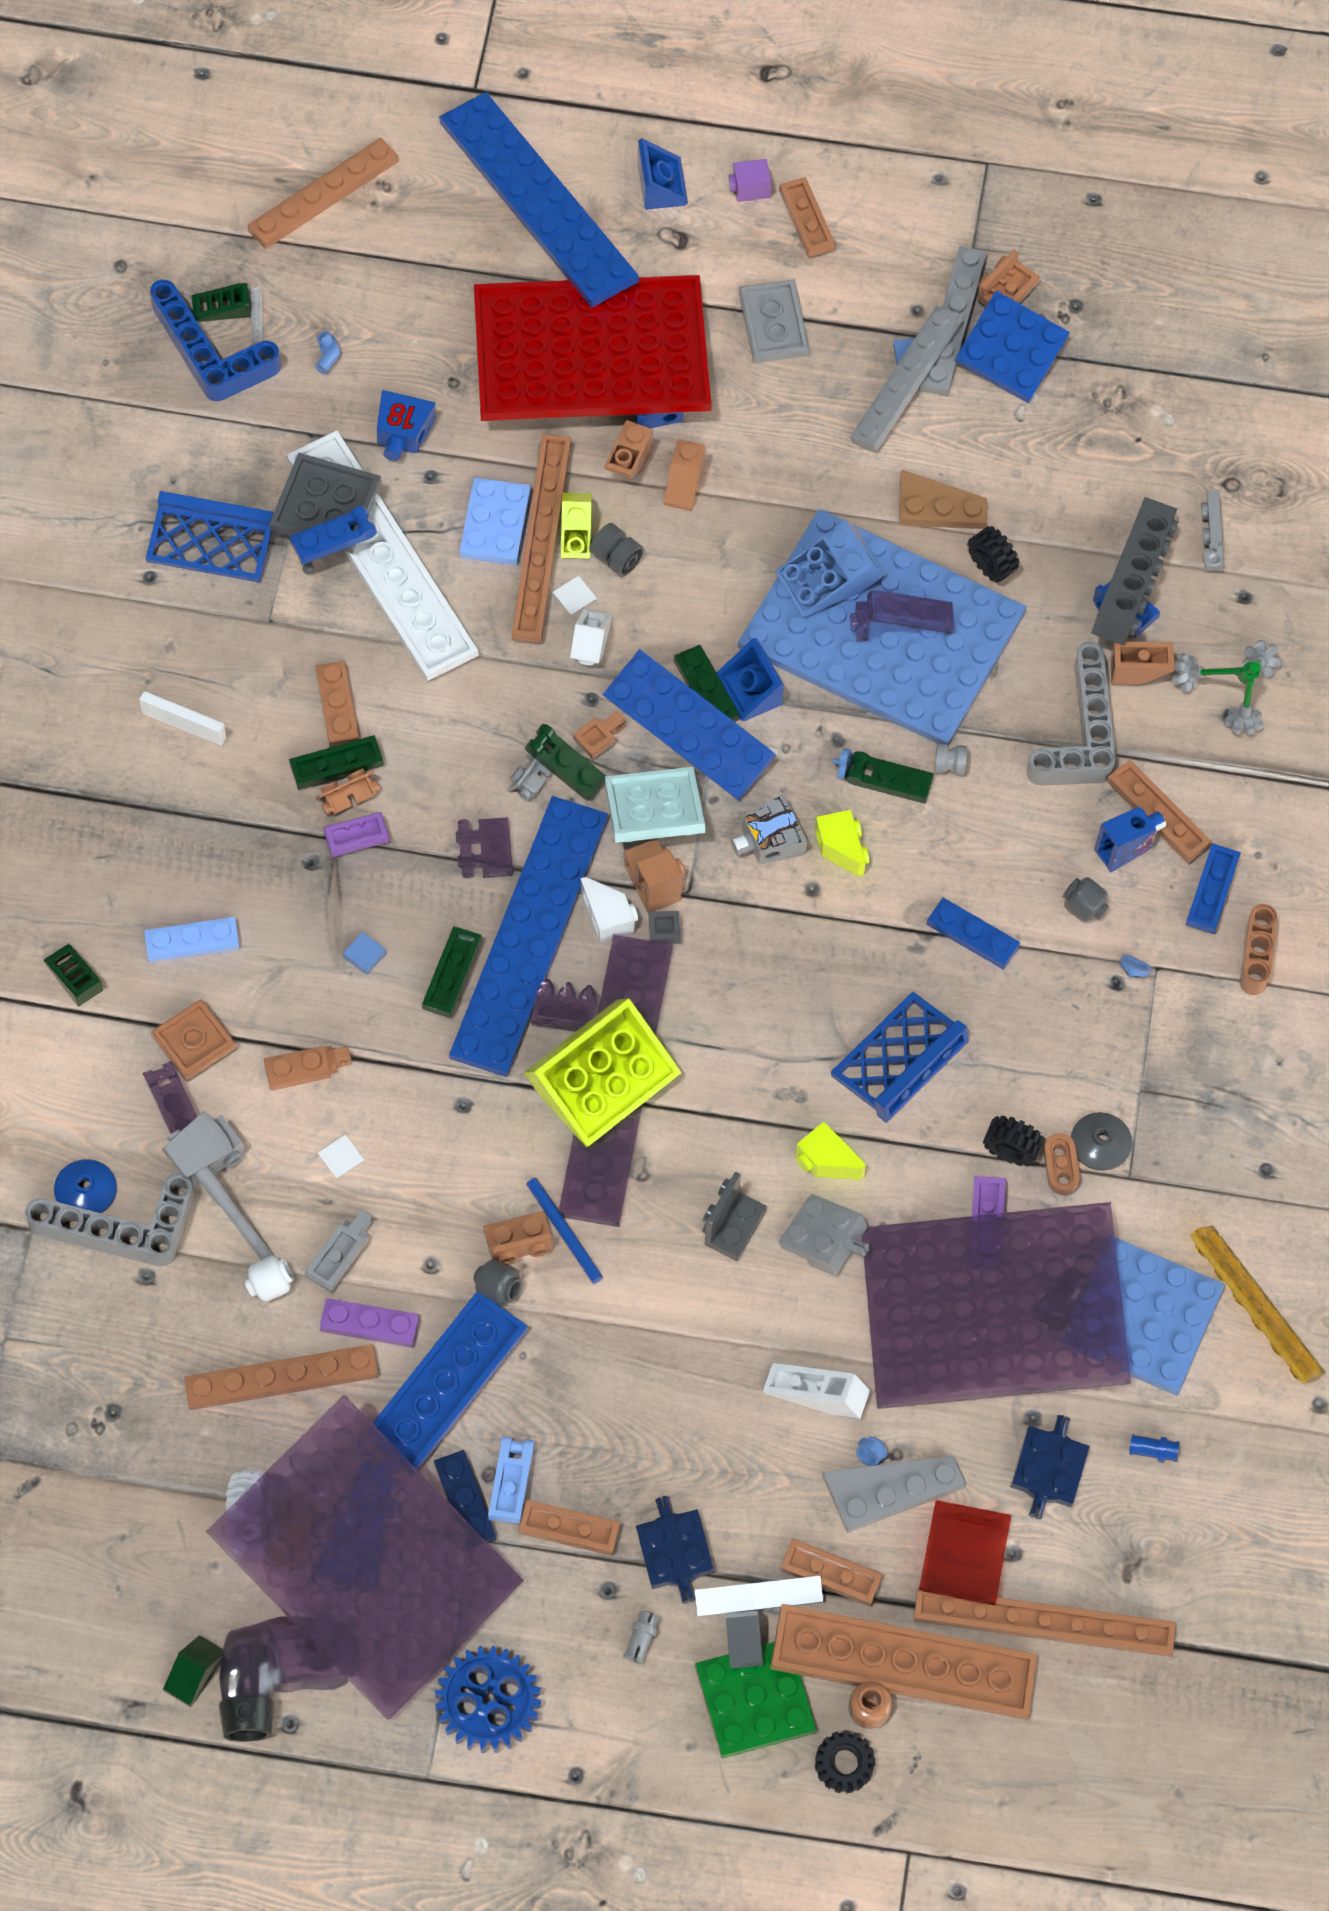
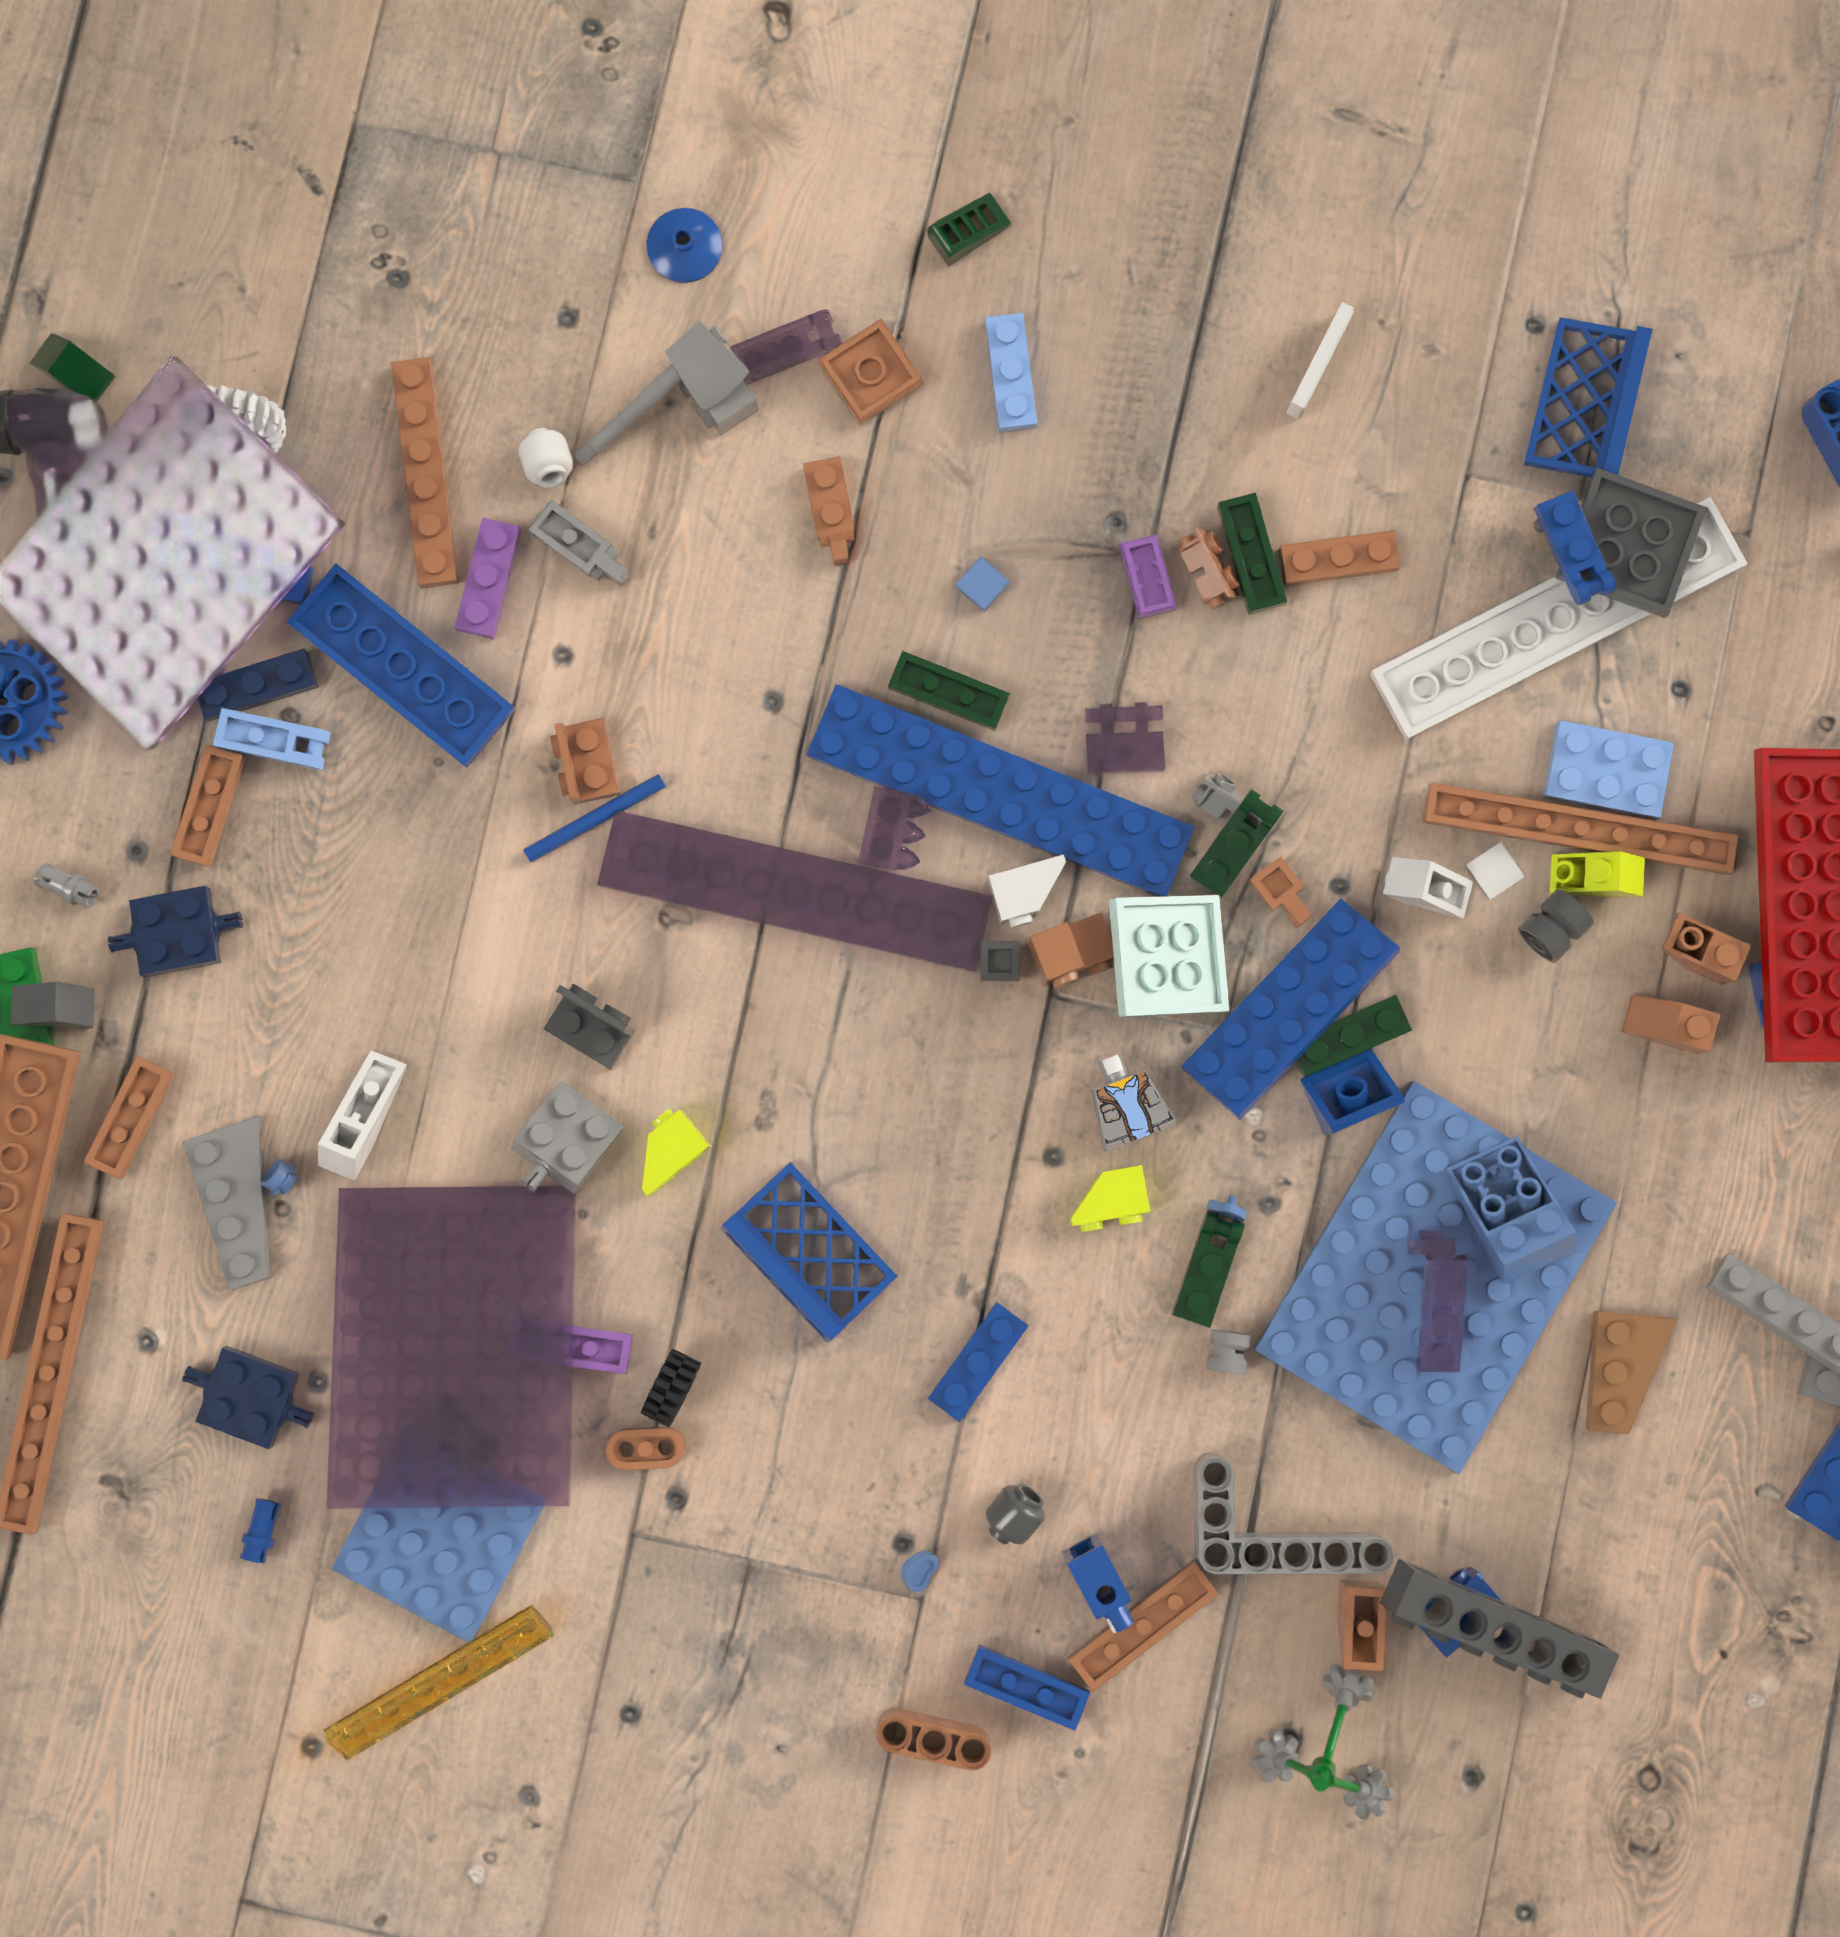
camera: 95 degrees right, 20 degrees up
(118, 1228) = (620, 279): light grey beam -> none
(341, 1156) = (711, 550): white sticker -> none
(403, 423) = (1757, 651): blue torso -> none
(498, 1282) = (524, 731): dark grey head -> none
(603, 1071) = (789, 869): neon yellow slope -> none
(758, 1595) = (108, 1029): white sticker -> none
(965, 1552) = (137, 1282): clear red piece -> none
(993, 554) = (1534, 1434): black tyre -> none
(1097, 1153) = (695, 1488): dark grey dish -> none
(1213, 534) = (1564, 1744): light grey hinge -> none

